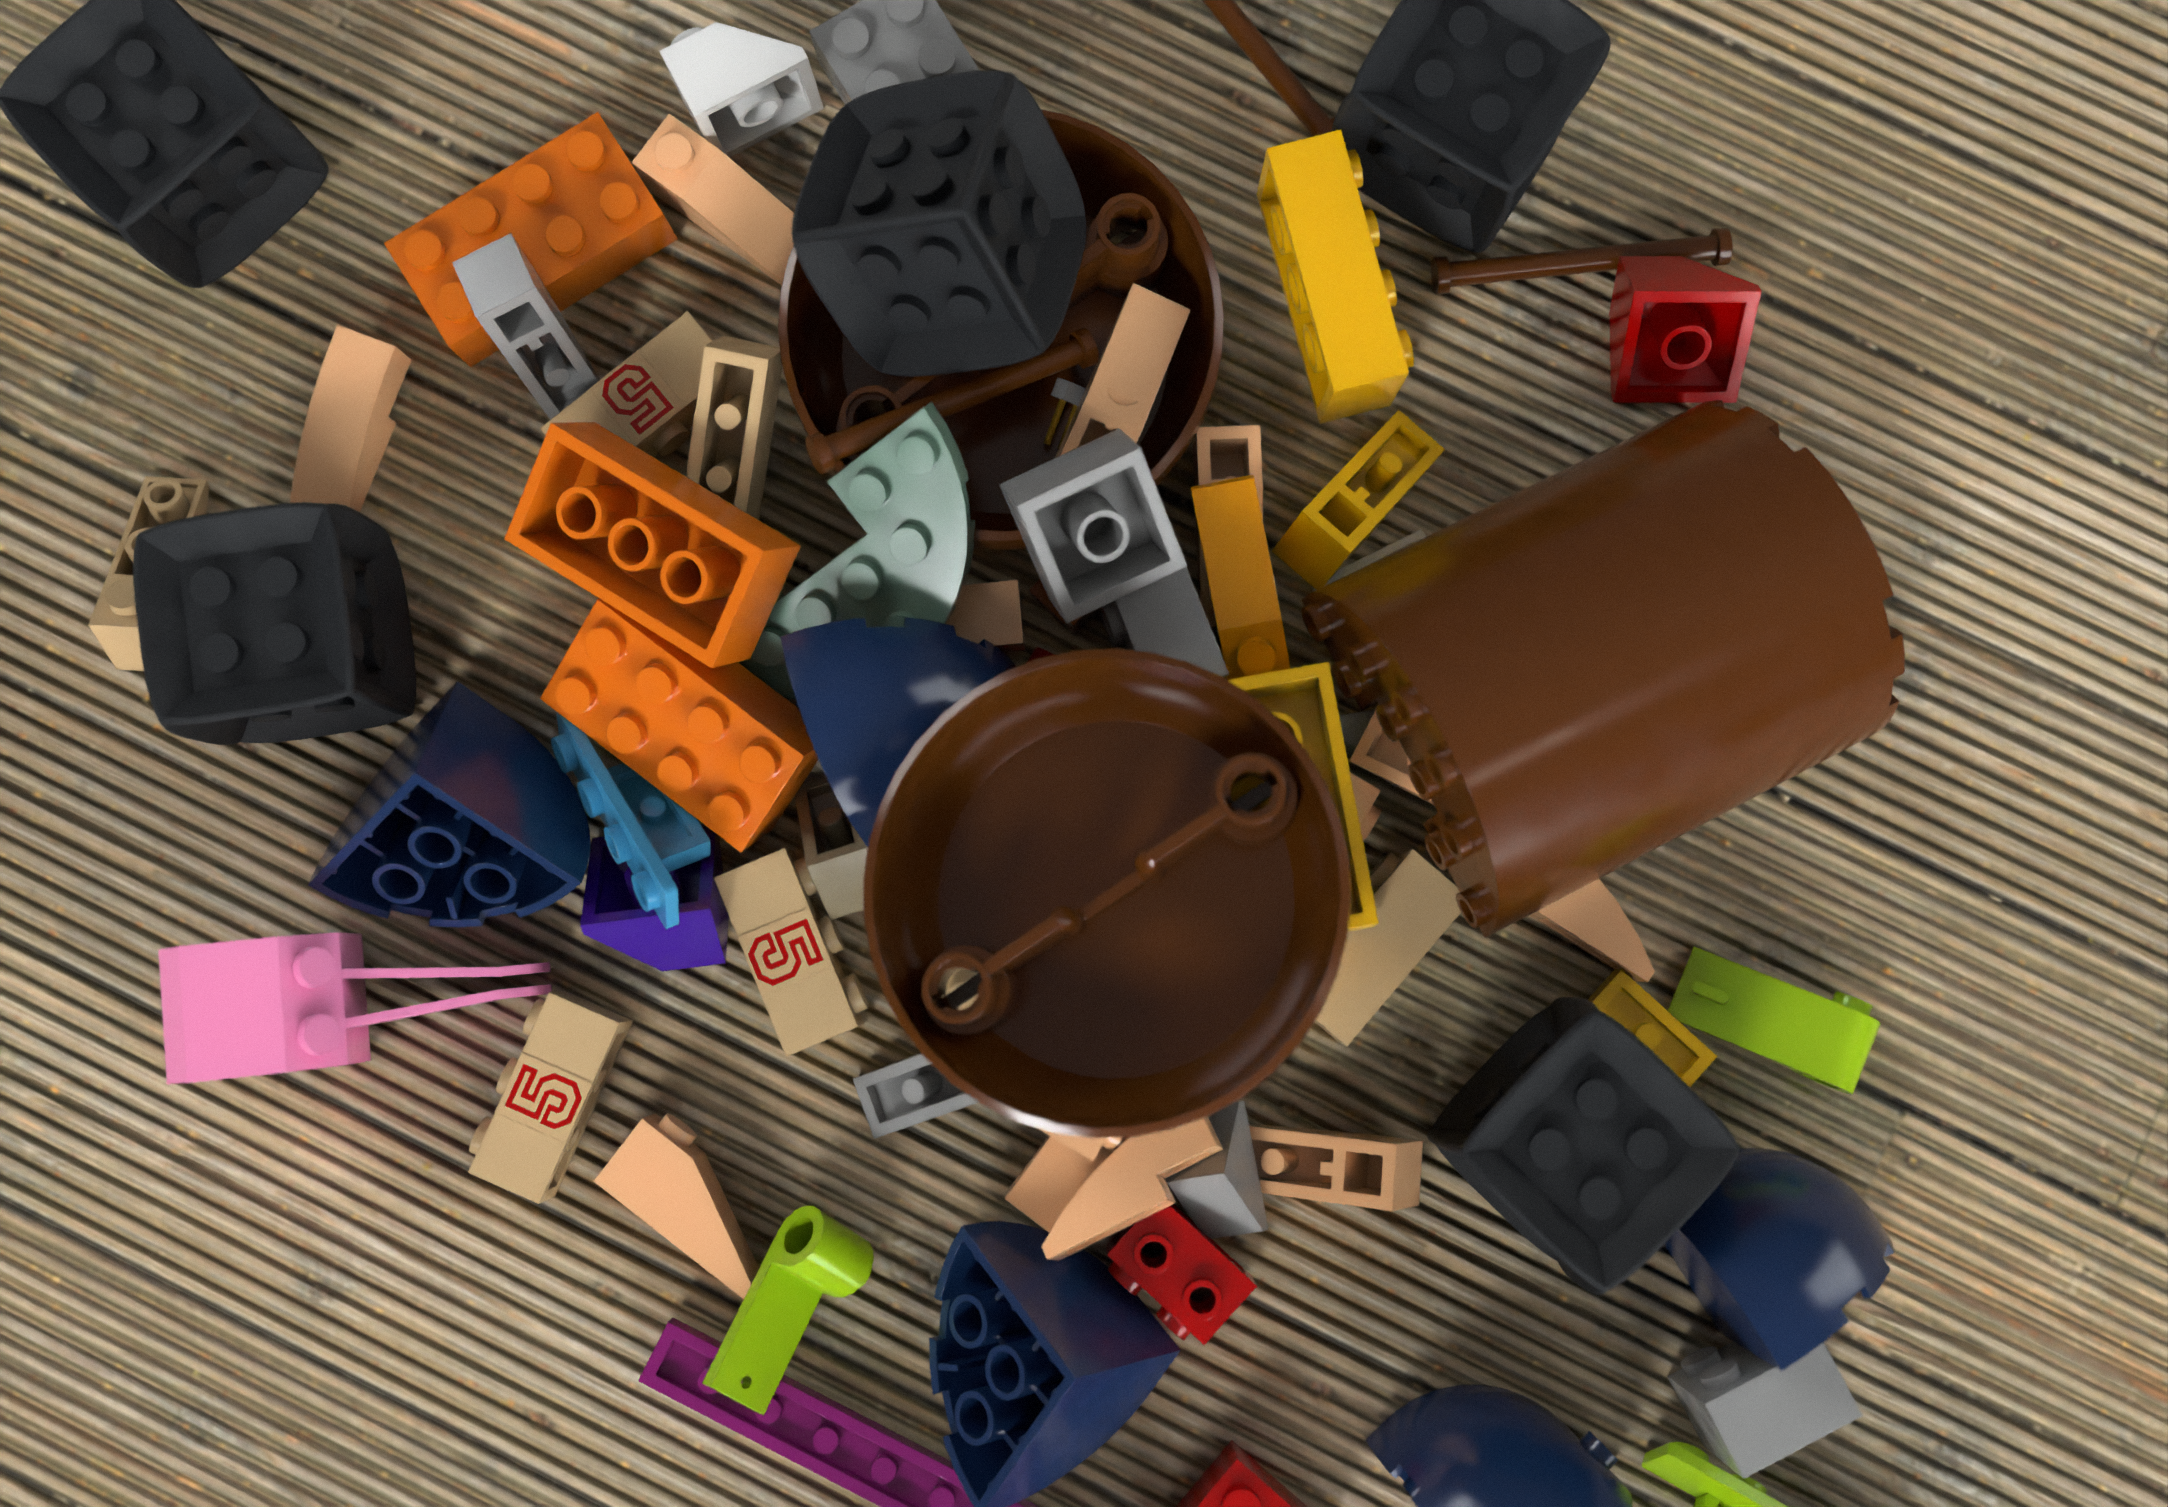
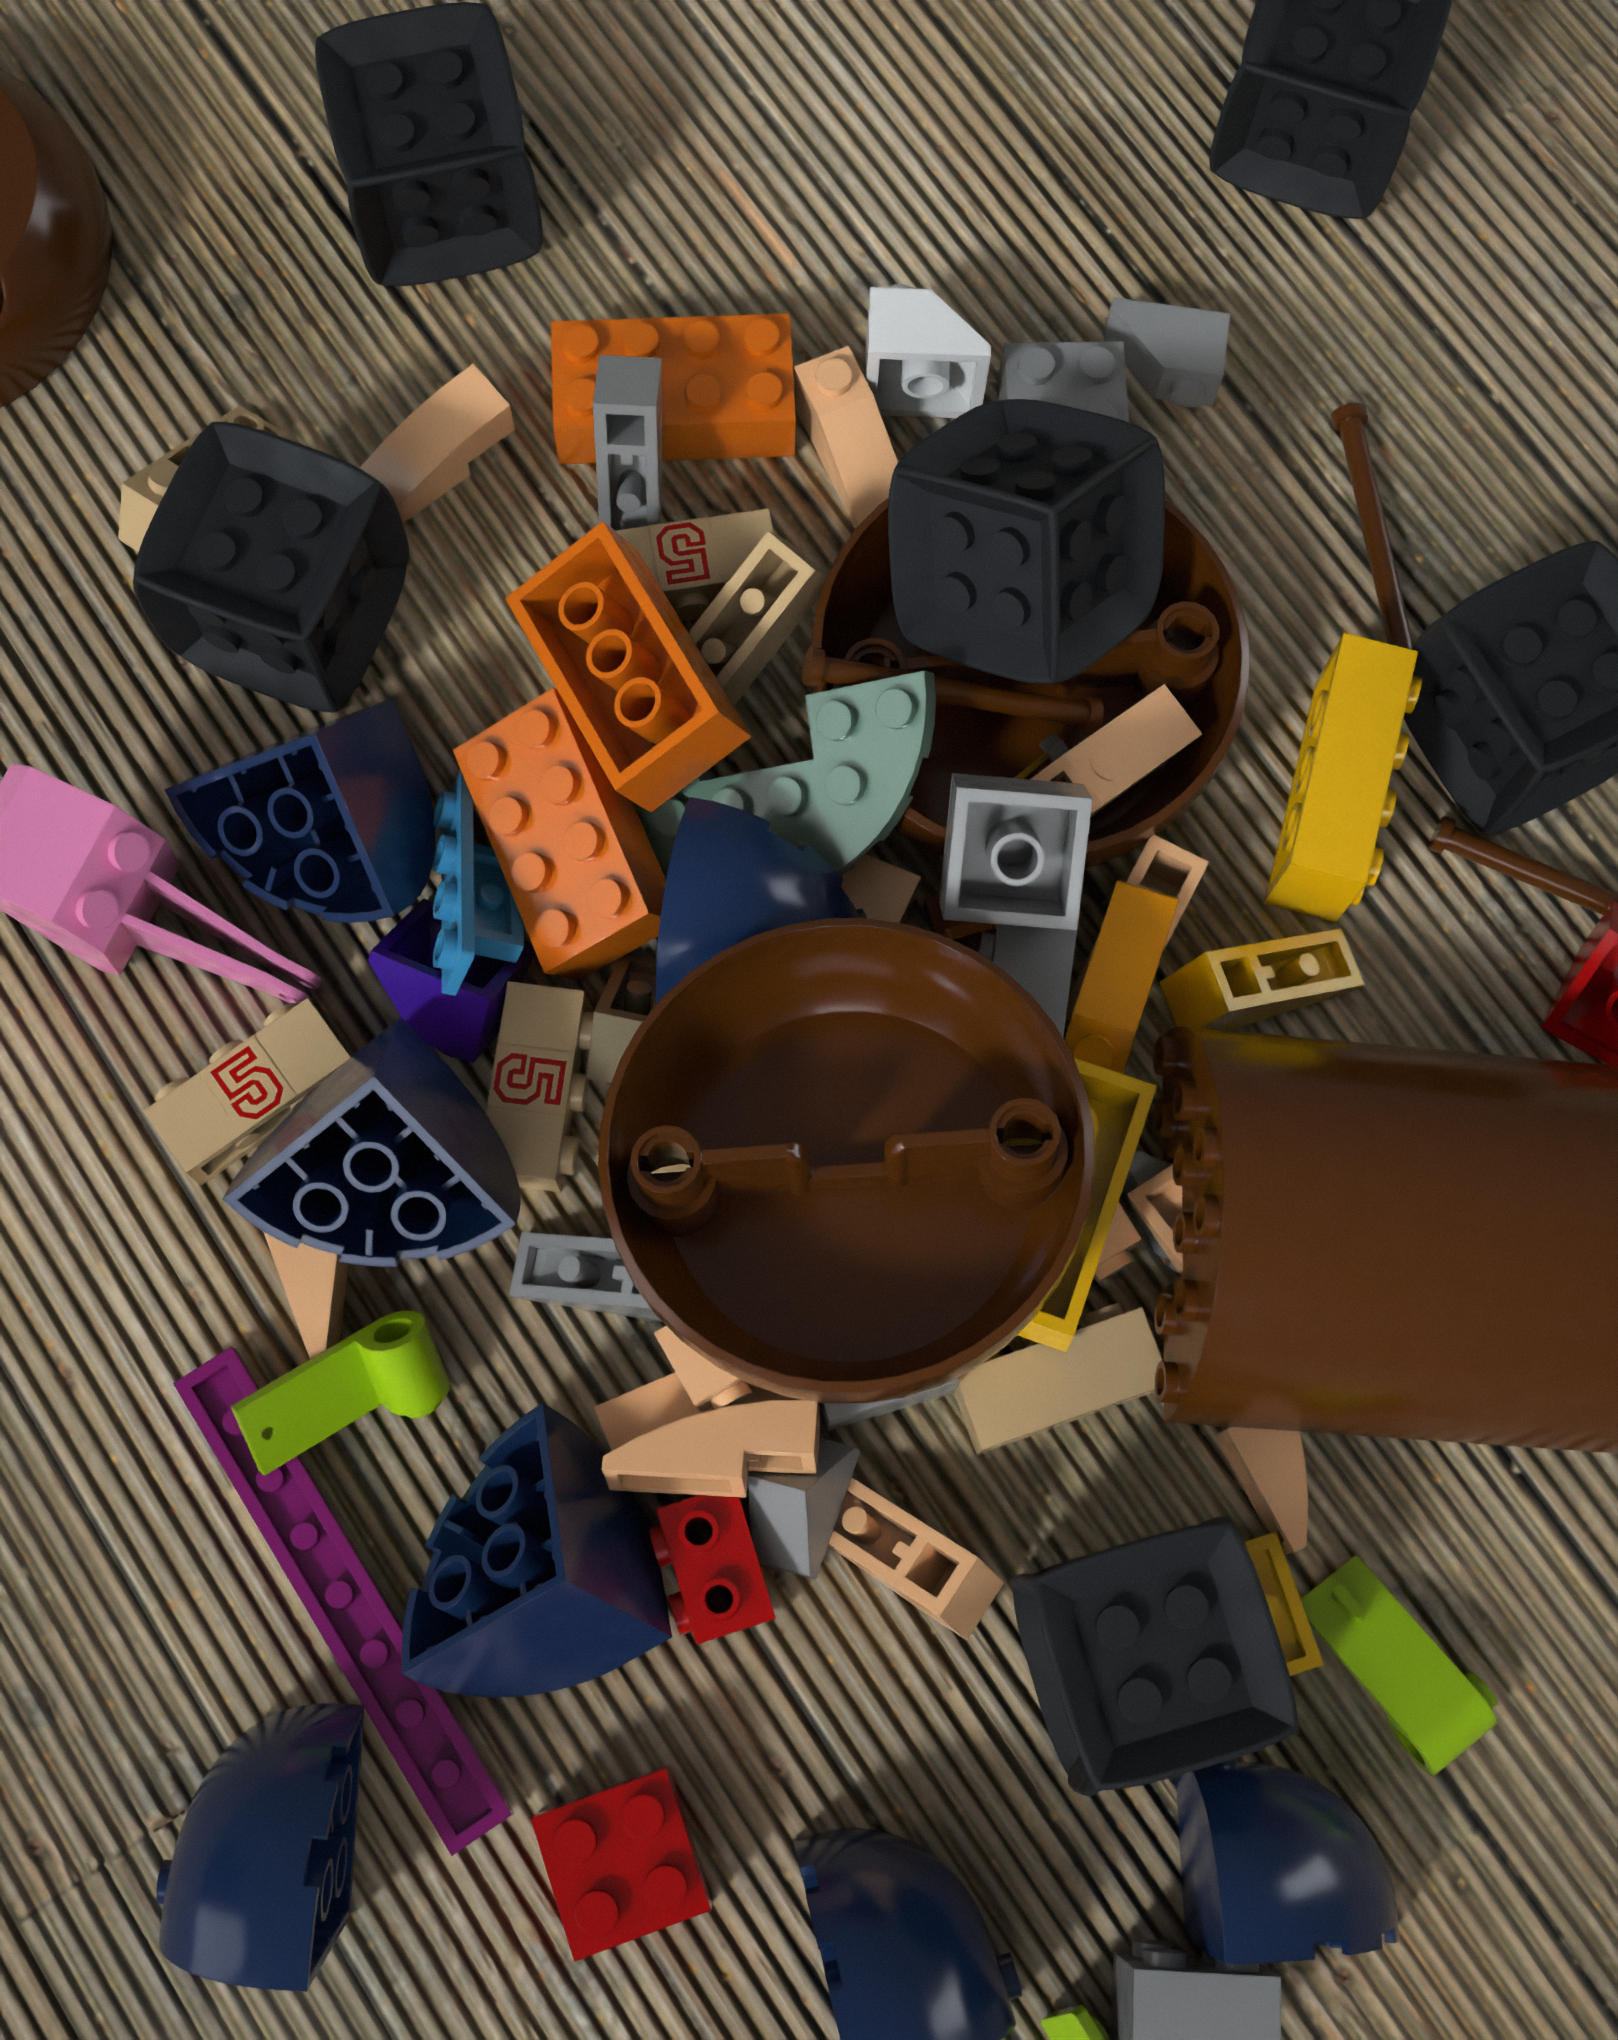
camera: 25 degrees right, 10 degrees down
(704, 1104) = (383, 1162): none -> dark blue brick

